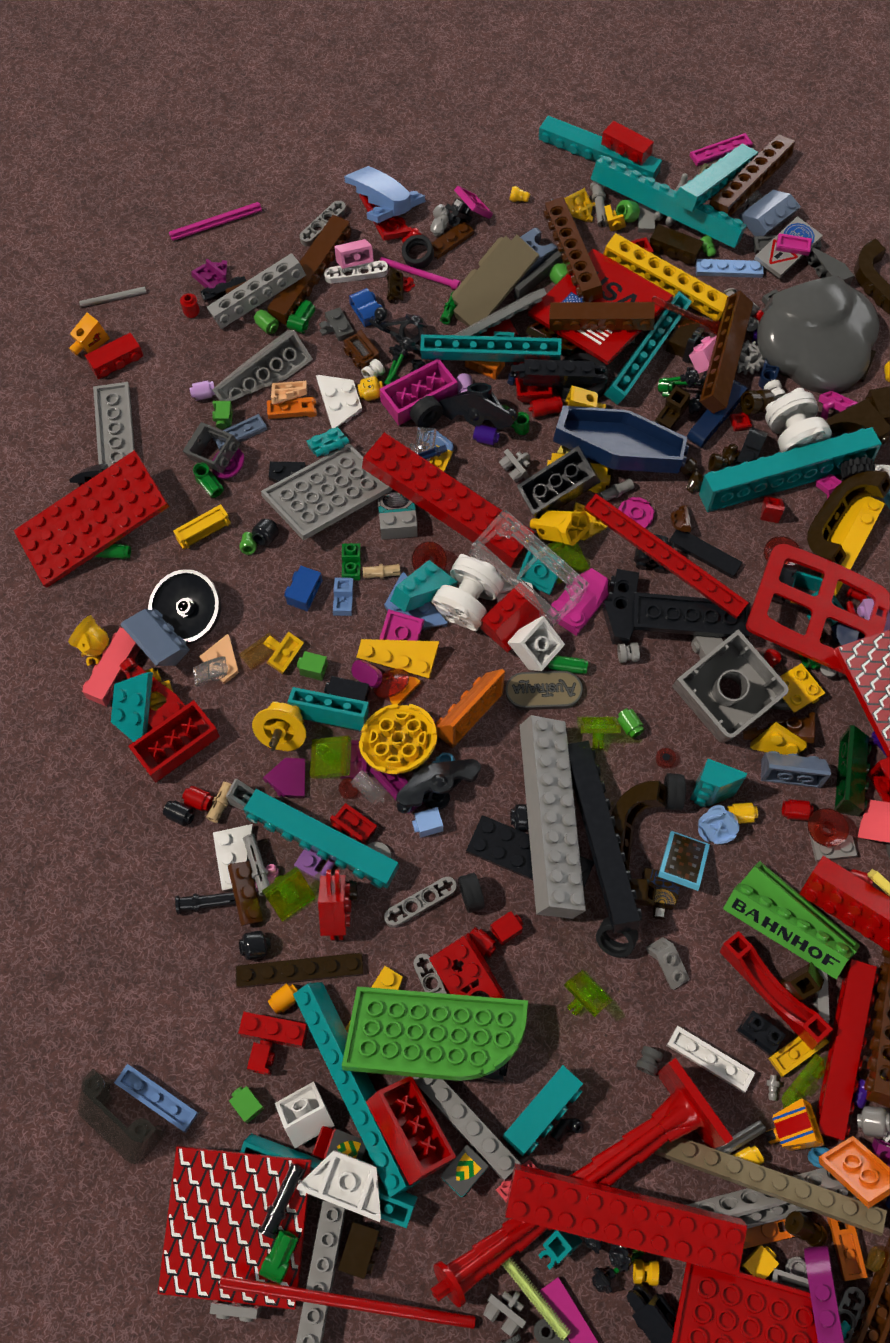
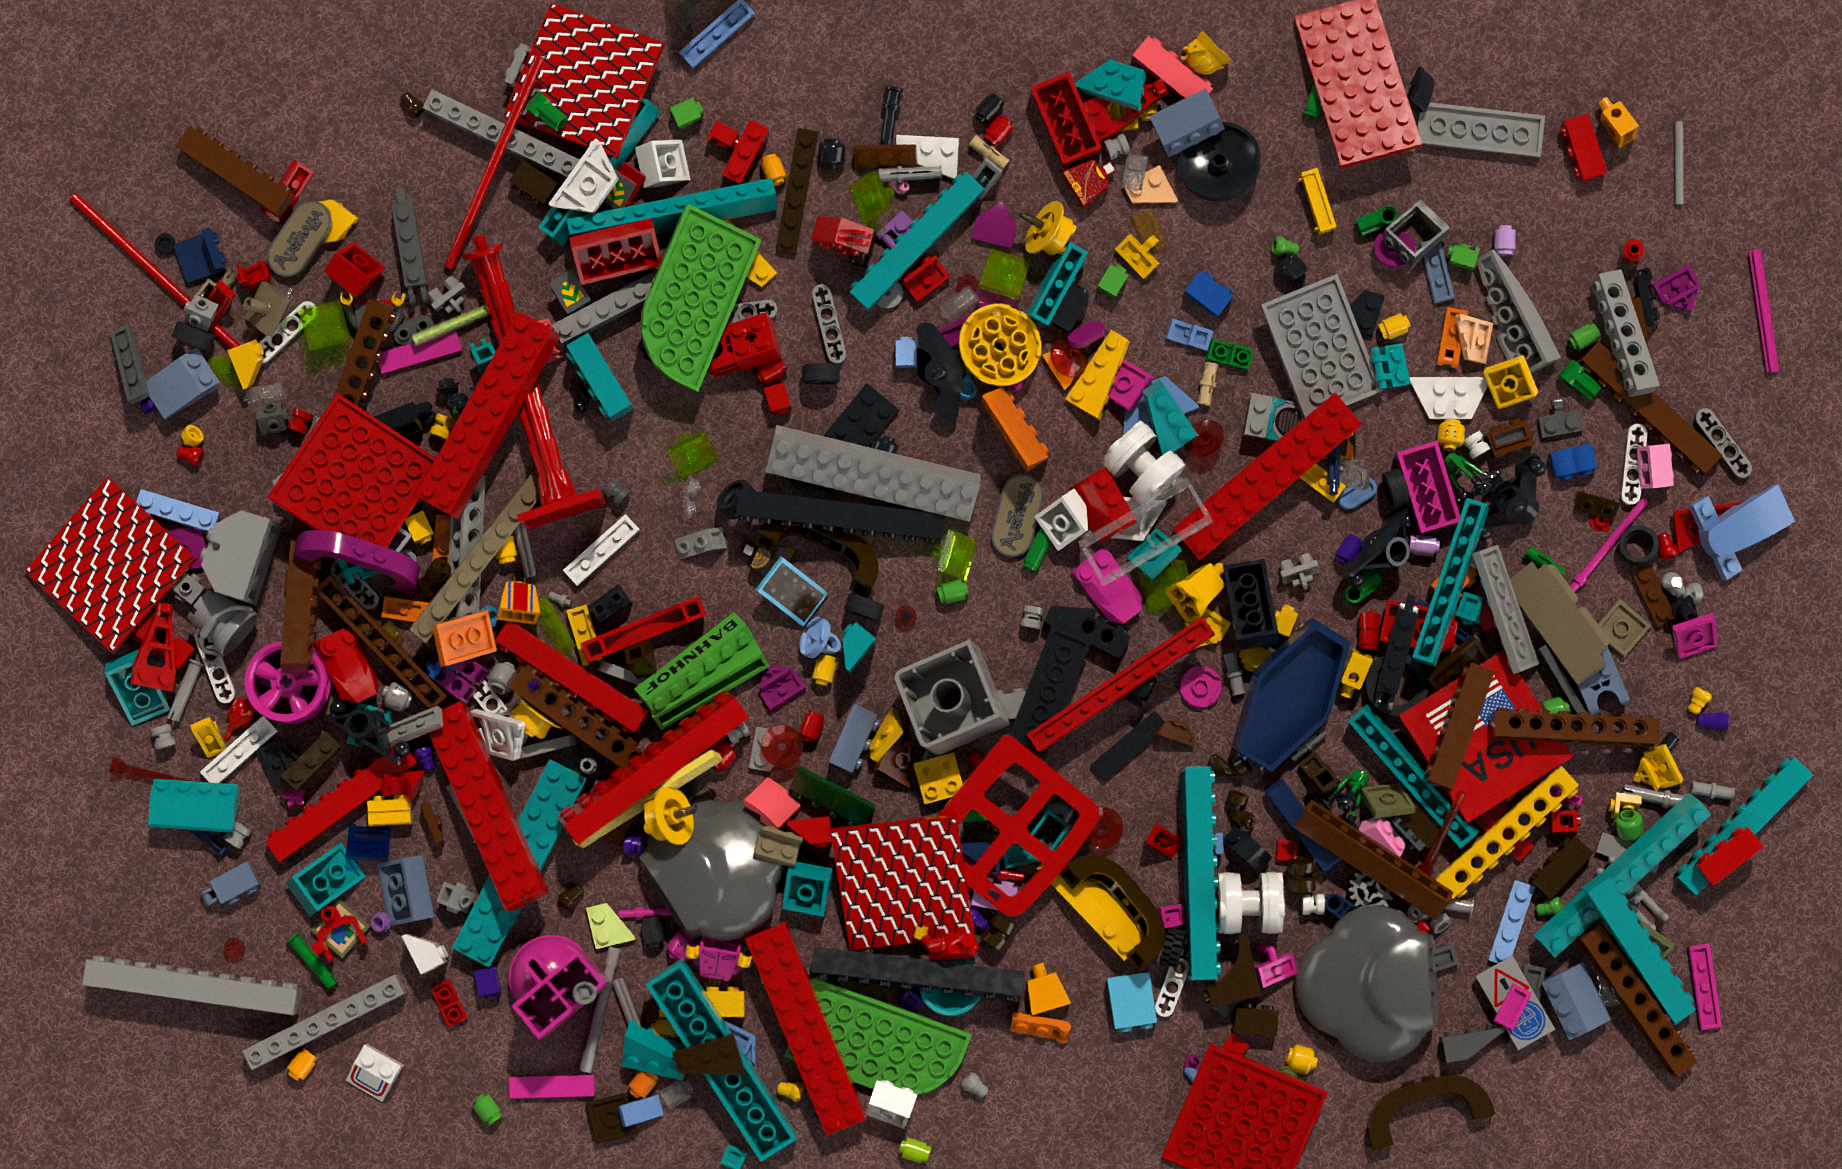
camera: 105 degrees right, 20 degrees up
(188, 693) = (1116, 146): none -> light grey wheel
(227, 709) = (1088, 180): none -> torso
(276, 1211) = (583, 118): black pin -> none
(293, 448) = (1394, 326): none -> yellow brick
(316, 346) = (1504, 393): none -> yellow brick
(476, 250) = (1623, 627): none -> dark tan tile
(529, 179) = (1716, 721): none -> dark purple cone
(581, 173) = (1712, 790): none -> light grey pin
(623, 986) = (691, 489): none -> clear slope
(675, 356) = (1387, 800): none -> olive tile
(771, 849) = (779, 685): none -> magenta slope

